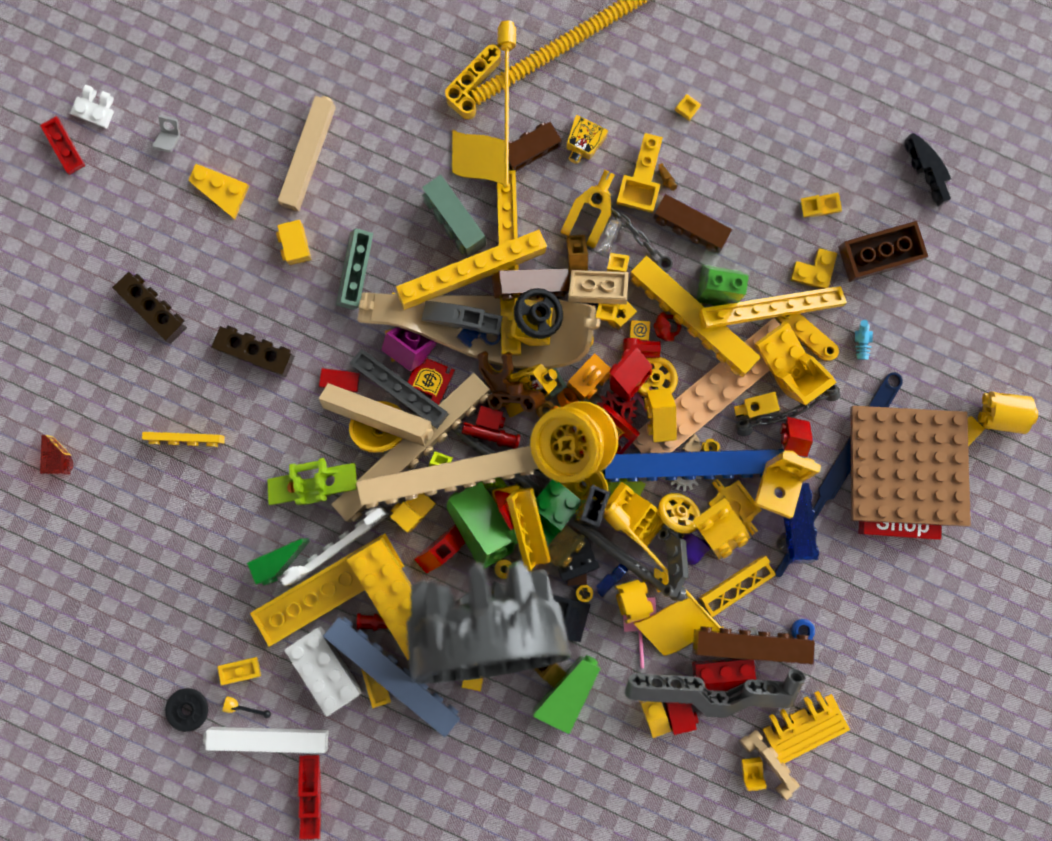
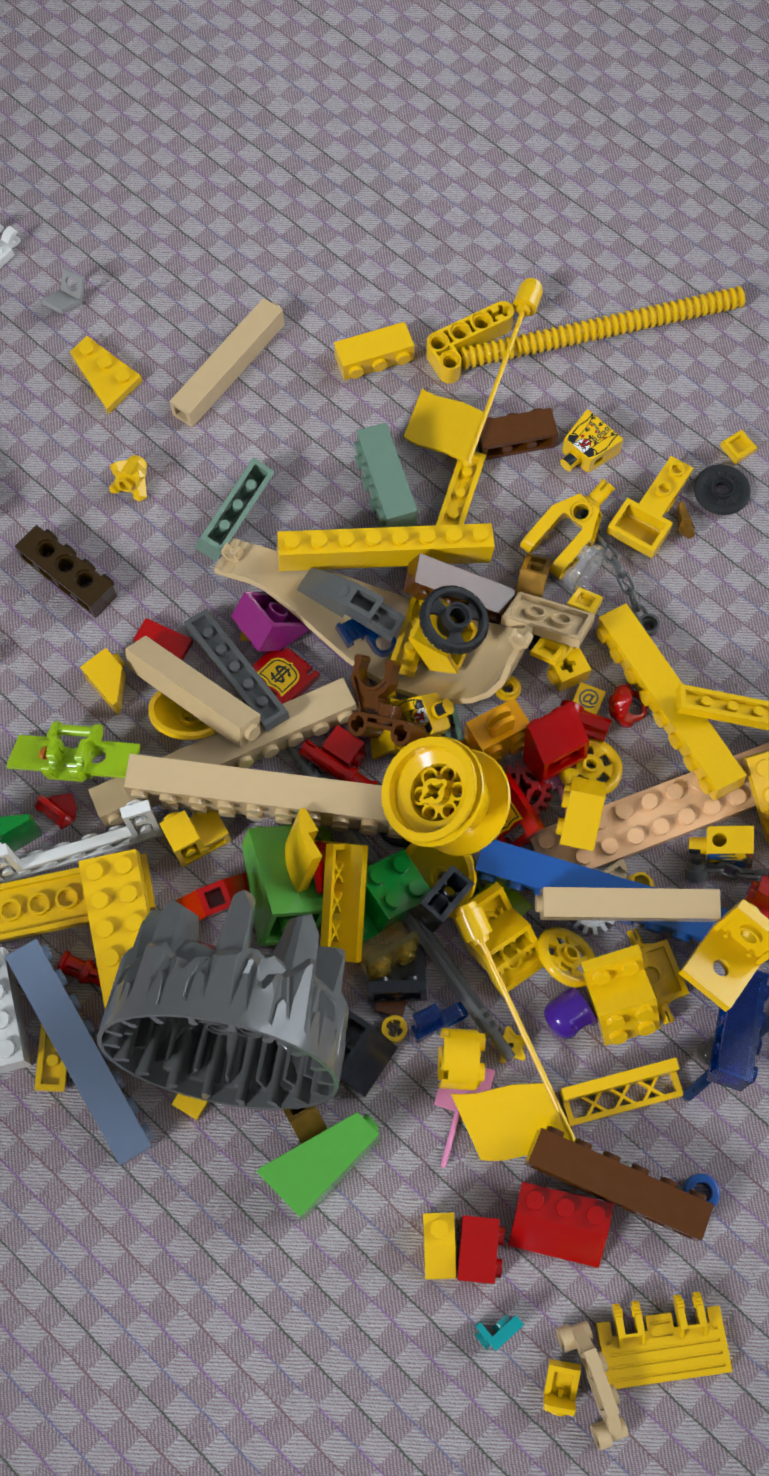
camera: 25 degrees right, 15 degrees down
(271, 266) = (130, 477): none -> yellow rock
(294, 242) = (170, 458): yellow brick -> none
(312, 420) = (107, 677): none -> yellow slope
(315, 520) = (58, 808): none -> red piece
(409, 112) = (374, 351): none -> yellow brick
(490, 508) = (301, 852): none -> yellow slope
(676, 563) = (539, 1025): dark grey plate -> none
(681, 155) = (718, 503): none -> black wheel
(692, 224) = (701, 586): reddish brown brick -> none
(710, 470) = (628, 904): none -> tan brick
(710, 753) = (504, 1328): none -> teal bracket
(712, 702) = (536, 1254): dark grey beam -> none
(721, 285) = (718, 663): bright green slope -> none

